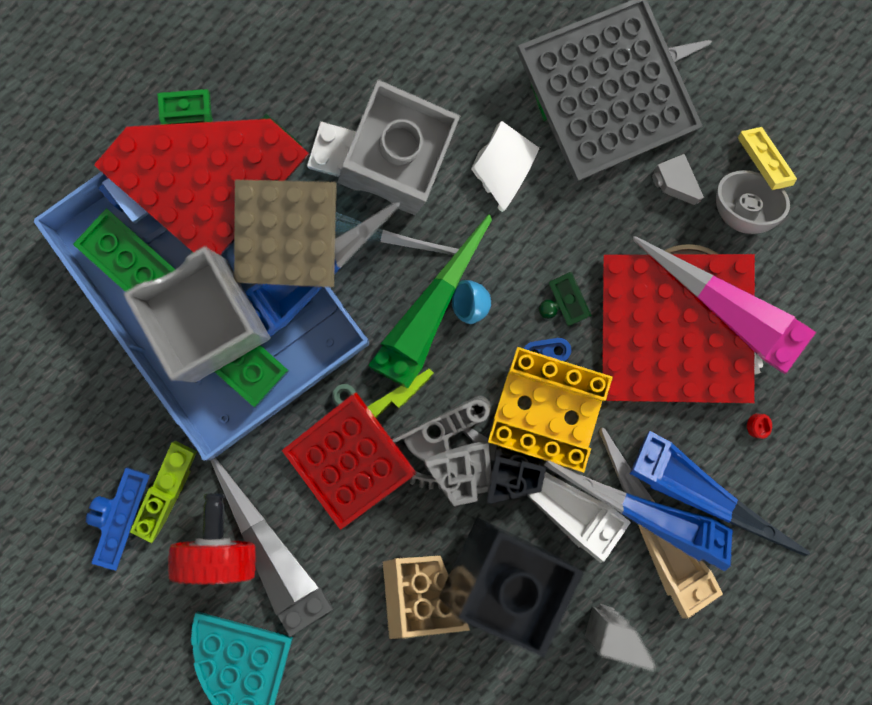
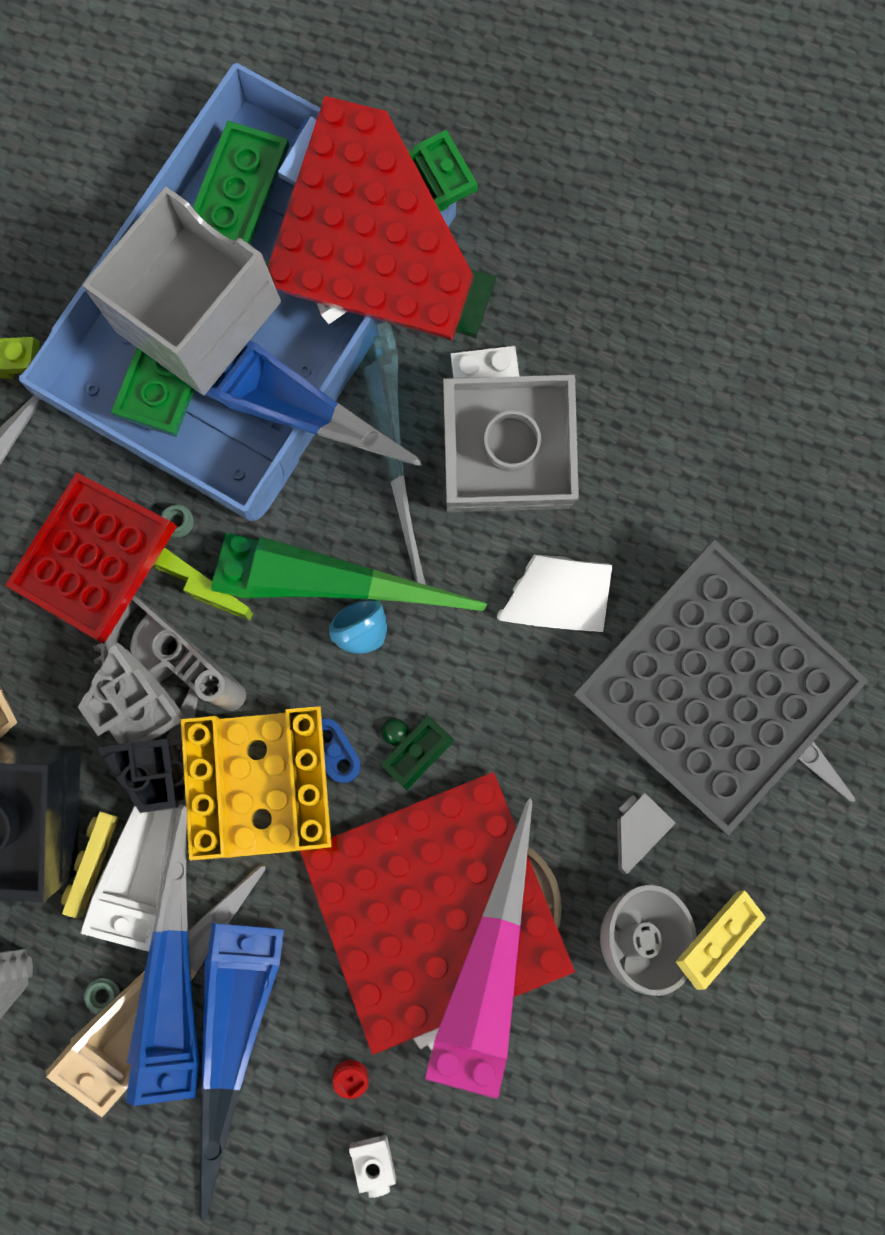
camera: 65 degrees right, 5 degrees down
(285, 232) = (334, 350): dark tan plate -> none
(555, 542) = (89, 864): none -> light yellow plate
(636, 566) = (92, 990): none -> sand green plate
(810, 432) = (377, 1152): none -> white brick

